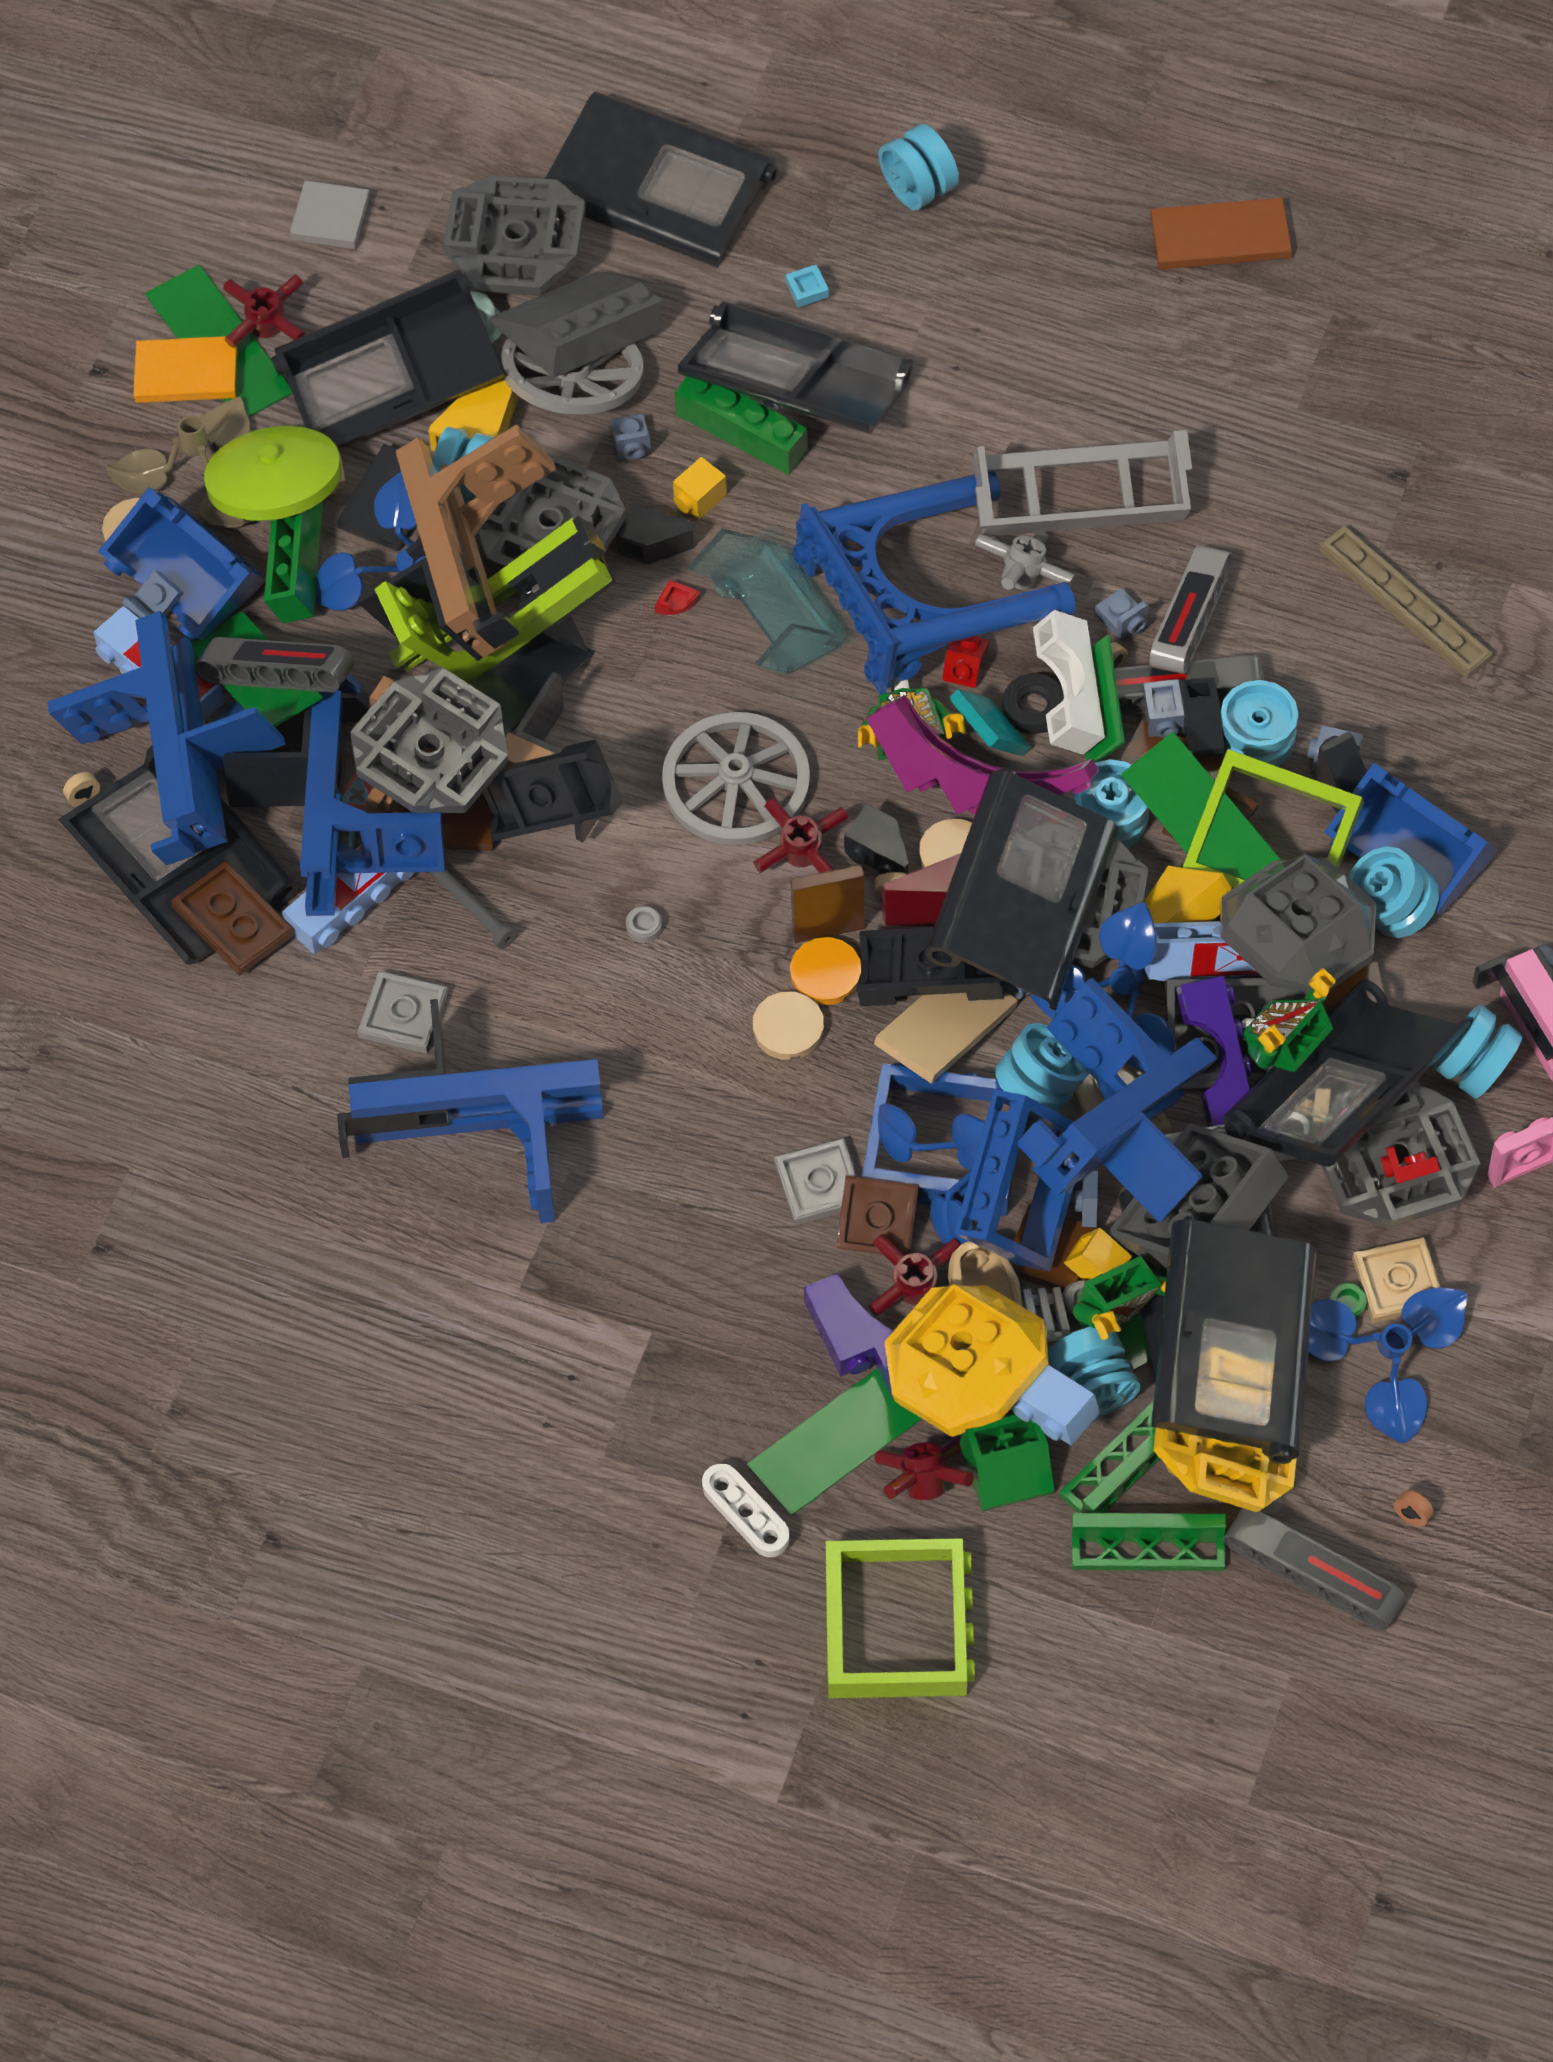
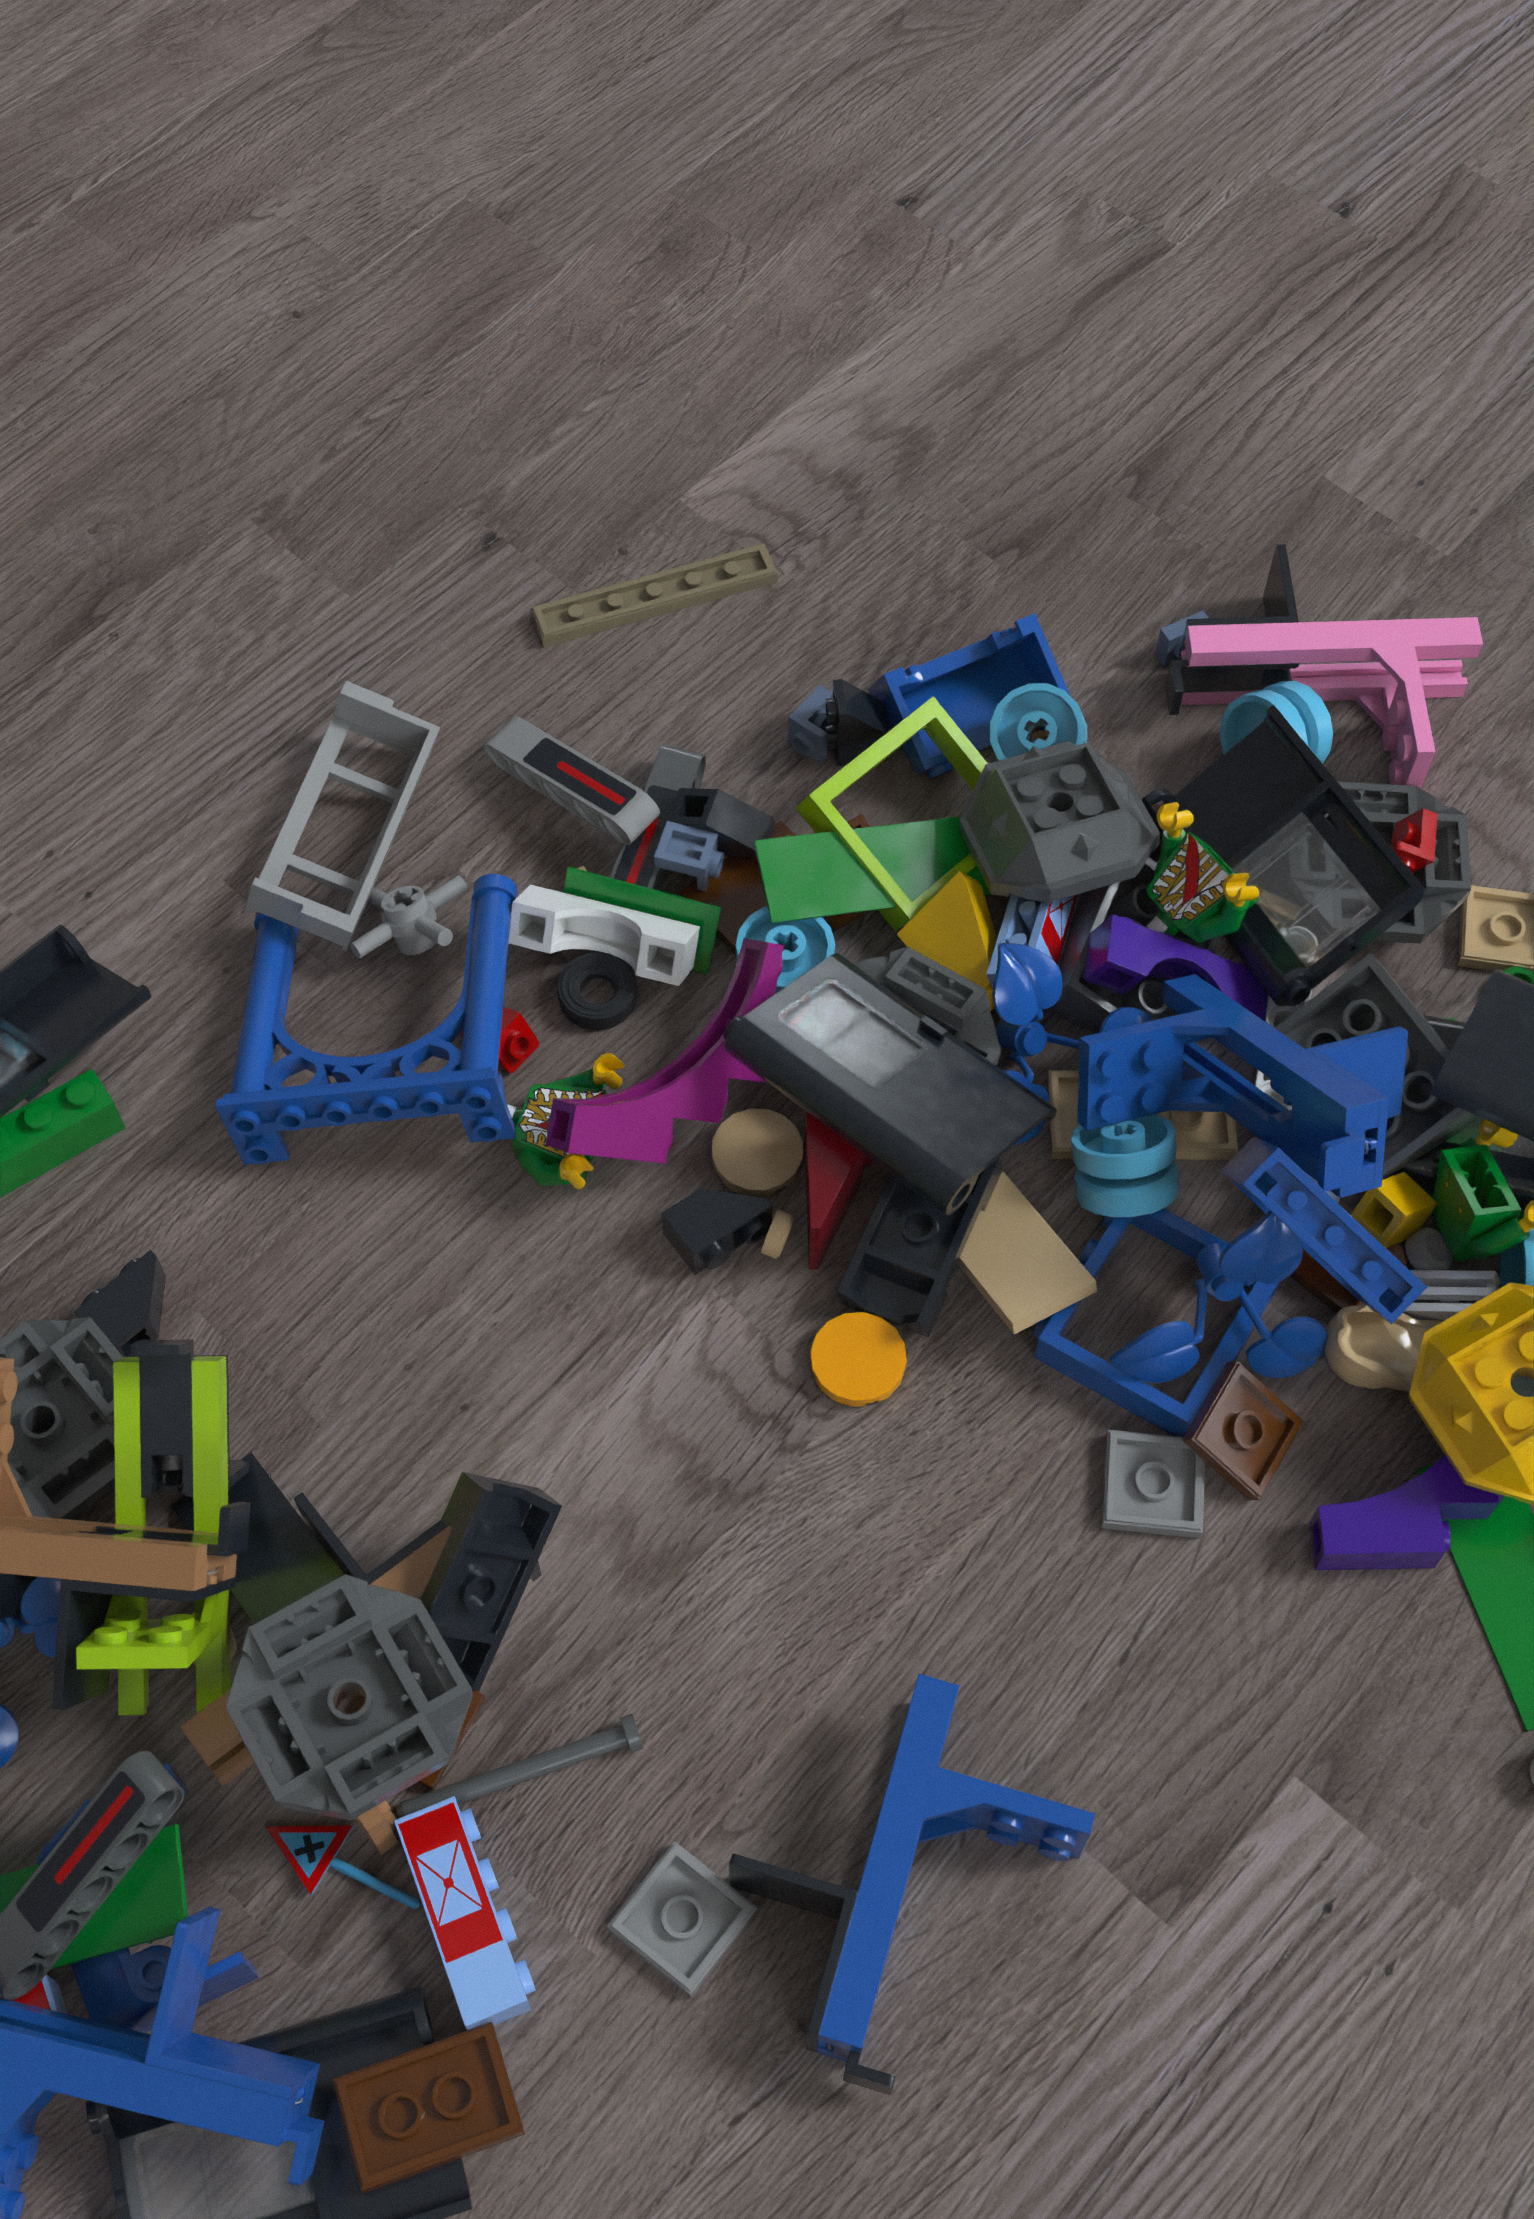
camera: 70 degrees left, 0 degrees up
(316, 781) = (379, 1903): blue piece -> none
(643, 924) = (691, 1549): light grey tile -> none
(676, 599) = (231, 1323): red tile -> none
(699, 488) = (91, 1230): yellow brick -> none
(734, 781) = (535, 1361): light grey wheel -> none
(775, 596) = (311, 1205): clear light blue windscreen -> none
(788, 1025) = (917, 1432): tan tile -> none
(792, 839) = (664, 1295): dark red bar -> none
(827, 903) = (796, 1305): reddish brown tile -> none
(908, 1265) = (1339, 1437): dark red bar -> none
(989, 722) = (614, 1038): teal tile -> none
(1123, 614) = (528, 855): sand blue bracket -> none
(1220, 233) = (81, 574): dark orange tile -> none
(1260, 721) = (758, 767): medium azure wheel -> none

